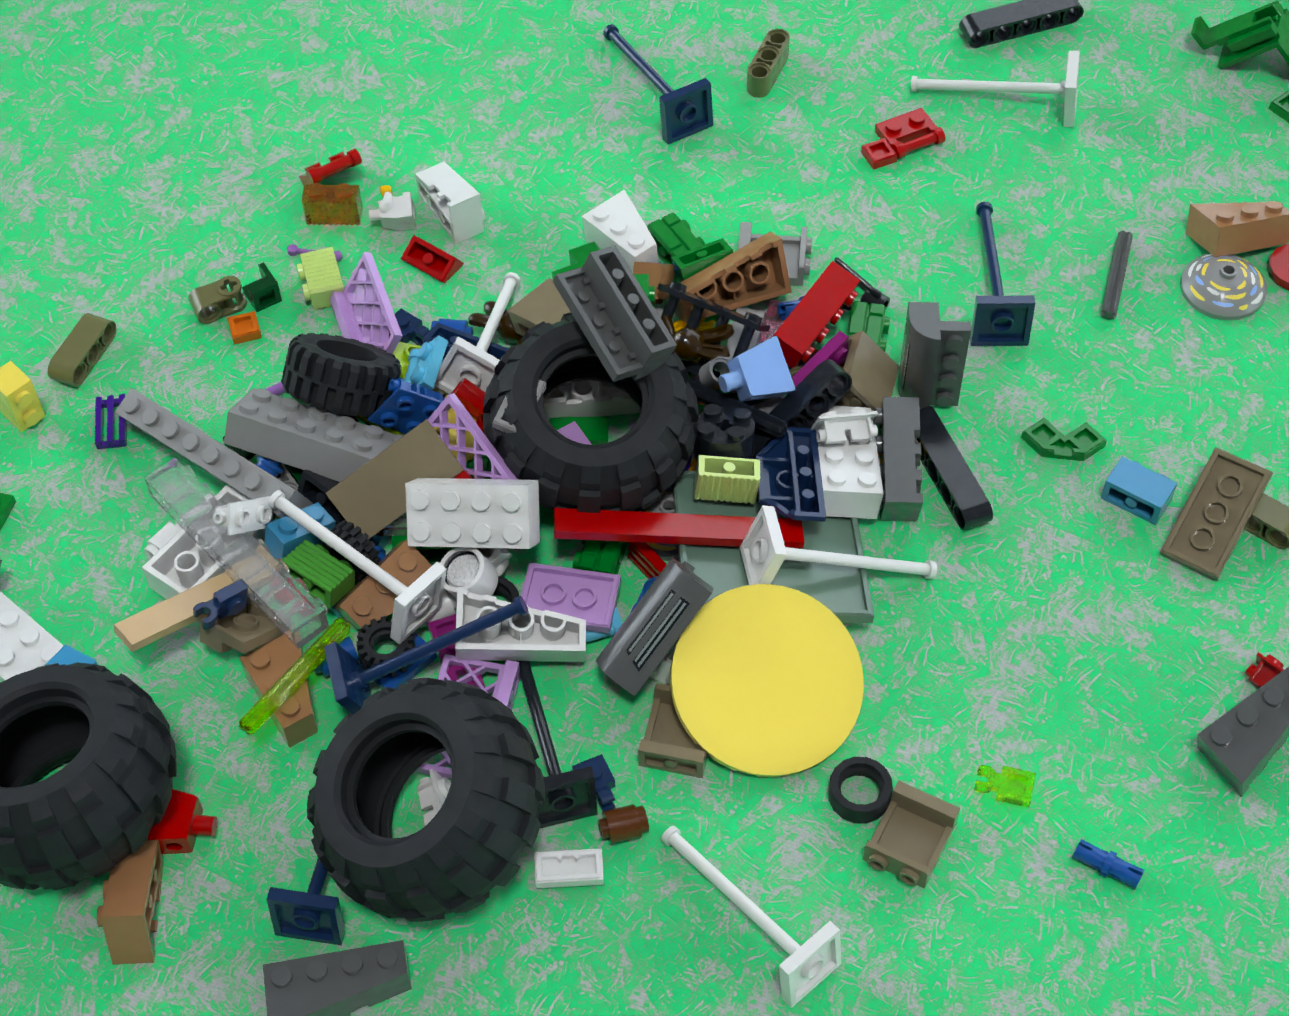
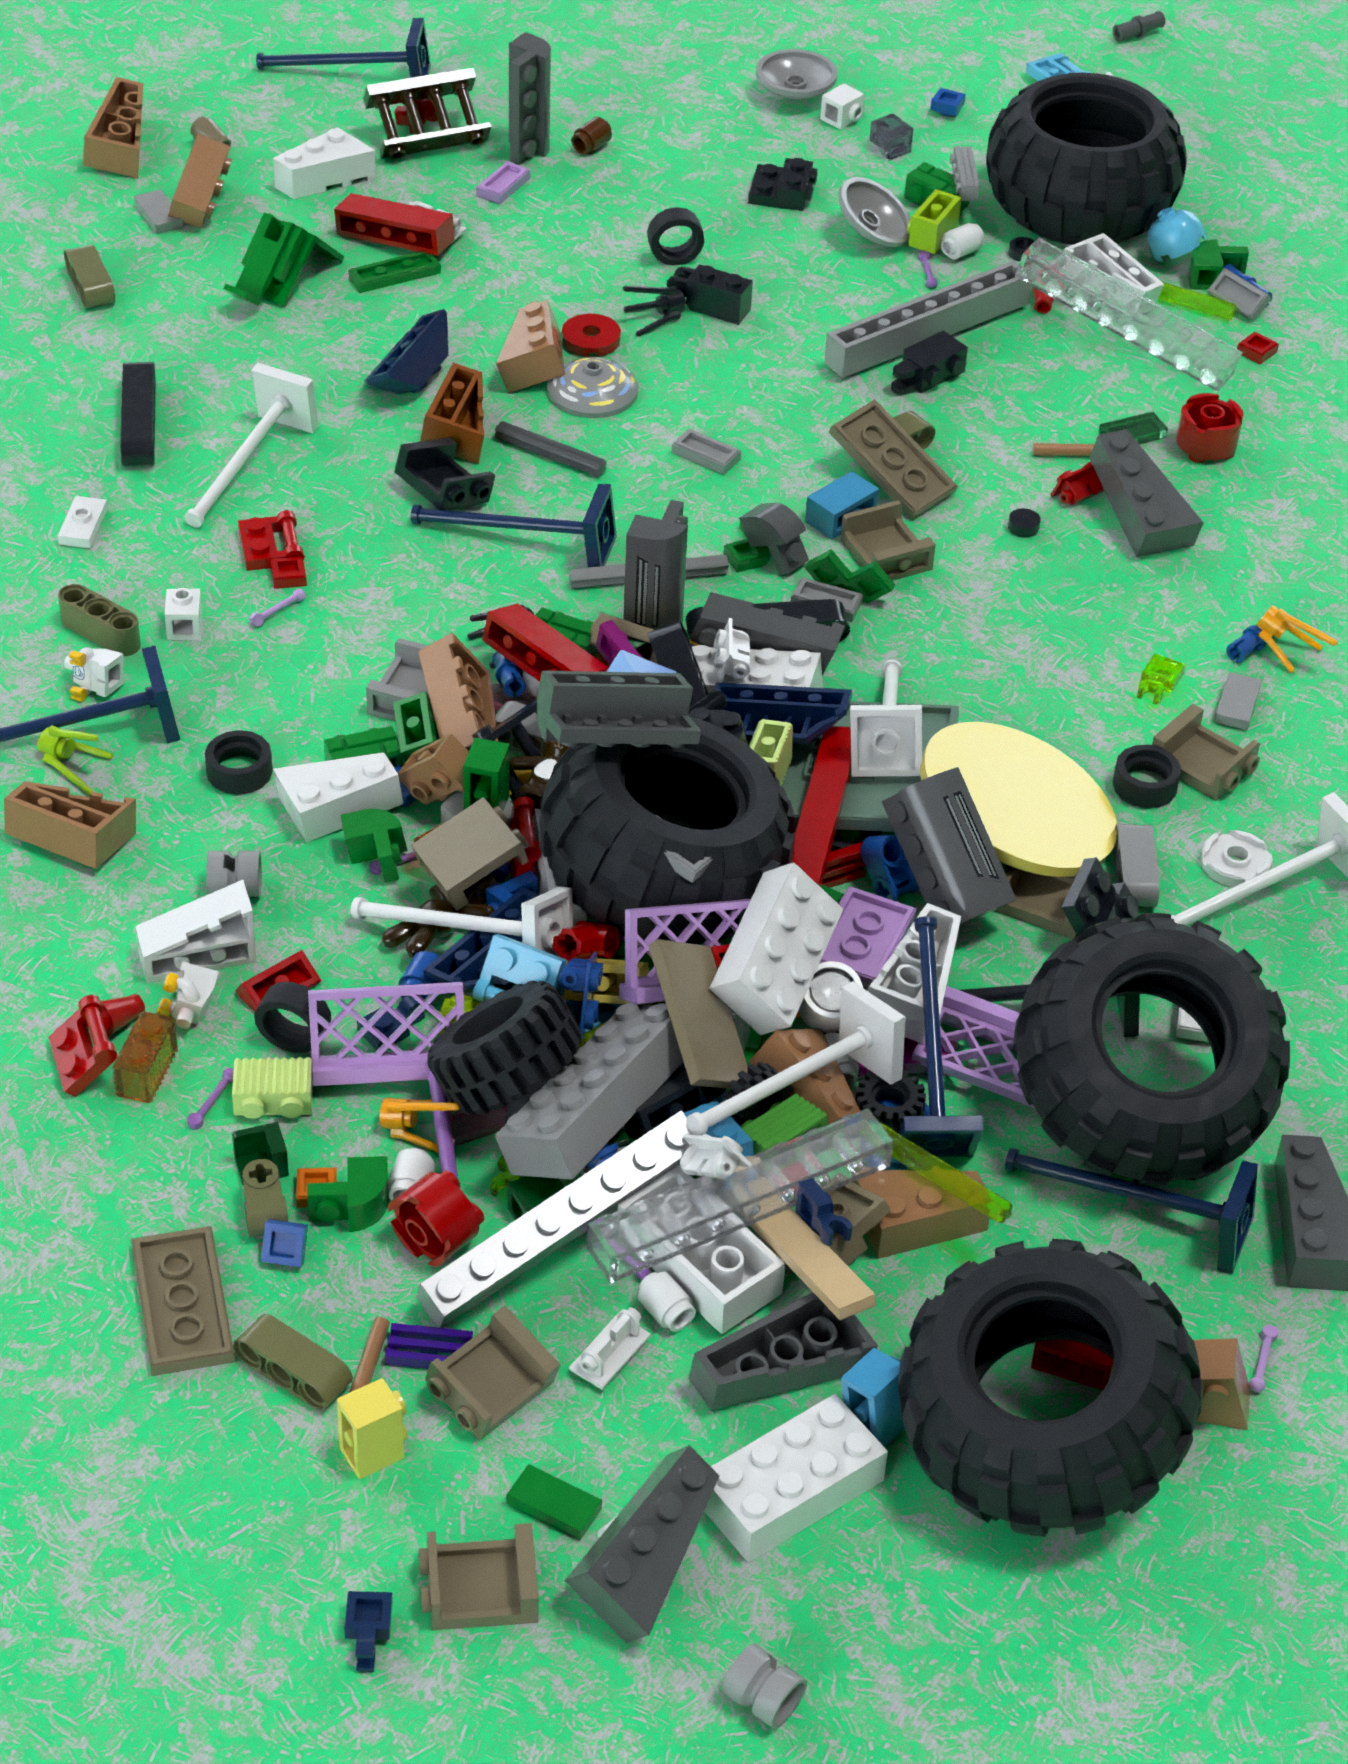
camera: 80 degrees left, 10 degrees down
(80, 455) = (492, 1374): none -> dark tan panel
(84, 392) = (371, 1353): none -> medium nougat bar
(110, 603) = (779, 1354): none -> dark grey wedge
(120, 522) = (611, 1349): none -> white hinge
(134, 283) = (182, 1301): none -> dark tan tile
(182, 319) = (284, 1243): none -> blue plate
(206, 388) = (435, 1217): none -> red brick
(212, 968) = (1269, 1335): none -> lavender hinge
(233, 350) = (358, 1200): none -> green brick
(255, 372) = (407, 1169): none -> white brick
(370, 178) = (120, 1012): none -> red cone
(385, 259) = (280, 1030): none -> black tyre
(522, 203) = (227, 869): none -> light grey wheel
(542, 105) = (68, 823): none -> medium nougat wedge
(626, 81) = (59, 744): none -> lime plant
(645, 163) = (241, 779): none -> black tyre
(648, 765) = (1096, 899): none -> black plate
(712, 69) = (95, 671): none -> white piece
(735, 795) = (1137, 862): none -> light grey beam
(781, 901) = (1229, 872): none -> white tile
(795, 105) = (183, 614): none -> white brick
(815, 149) = (257, 619): none -> lavender hinge
(882, 26) = (82, 522): none -> white plate
(995, 387) = (616, 573): none -> light grey axle
(1008, 507) = (814, 590): none -> light grey tile
(1008, 860) = (1238, 701): none -> light grey tile
(1031, 511) = (868, 580): none -> green tile
(1033, 209) = (437, 477): none -> black panel
(1056, 445) = (778, 529): none -> dark grey brick
(1103, 535) = (884, 537): none -> dark tan panel
(1116, 870) = (1277, 621): none -> light orange plant
(1117, 198) = (458, 412): none -> dark orange wedge
(1174, 382) = (706, 451): none -> light grey tile
(1175, 154) = (414, 356): none -> dark blue wedge
(1195, 641) = (1024, 522): none -> black tile

